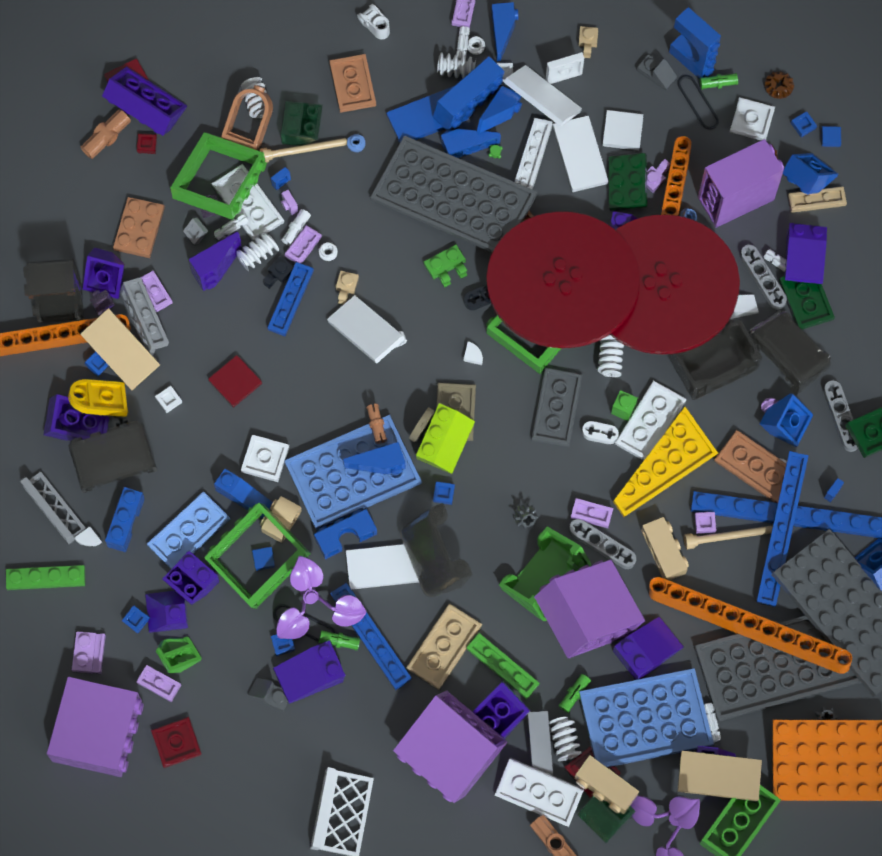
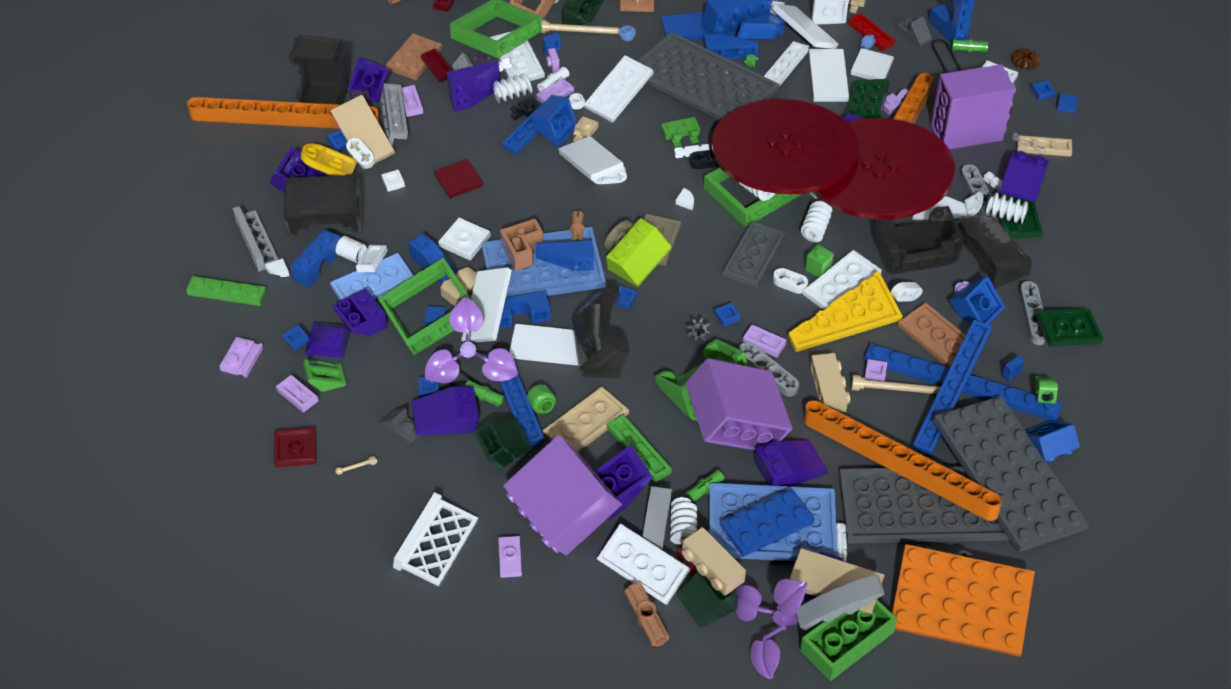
camera: 15 degrees right, 20 degrees down
(95, 727) = (220, 411): medium lavender brick -> none
(124, 381) = (357, 155): none -> white beam
(155, 500) = (350, 249): none -> white piece
(168, 237) = (436, 64): none -> dark red tile
(180, 506) = (371, 258): none -> white tile
(227, 758) = (372, 460): none -> tan hinge
(315, 287) = (555, 119): none -> blue slope
(315, 532) = (489, 296): none -> white tile
(324, 458) = (520, 241): none -> nougat brick
(368, 226) = (618, 88): none -> white tile
(375, 693) = (503, 441): none -> clear green slope
(396, 634) = (541, 399): none -> bright green head
(414, 811) = (510, 556): none -> lavender plate
(462, 290) = (687, 150): none -> white axle
(549, 490) = (727, 315): none -> blue plate
(612, 82) = (867, 27): none -> red tile
(612, 100) = (867, 42): none -> medium blue plate
(642, 723) = (767, 522): none -> blue plate
(716, 423) = (906, 291): none -> white beam
(731, 800) = (840, 600): none -> light grey slope
(761, 295) = (974, 203): none -> white tile
(787, 197) = (1015, 136): none -> clear hinge
(796, 300) = (1007, 207): none -> white piece
(809, 173) = (1039, 121): blue slope -> none
(867, 504) = (1045, 386): none -> bright green leg

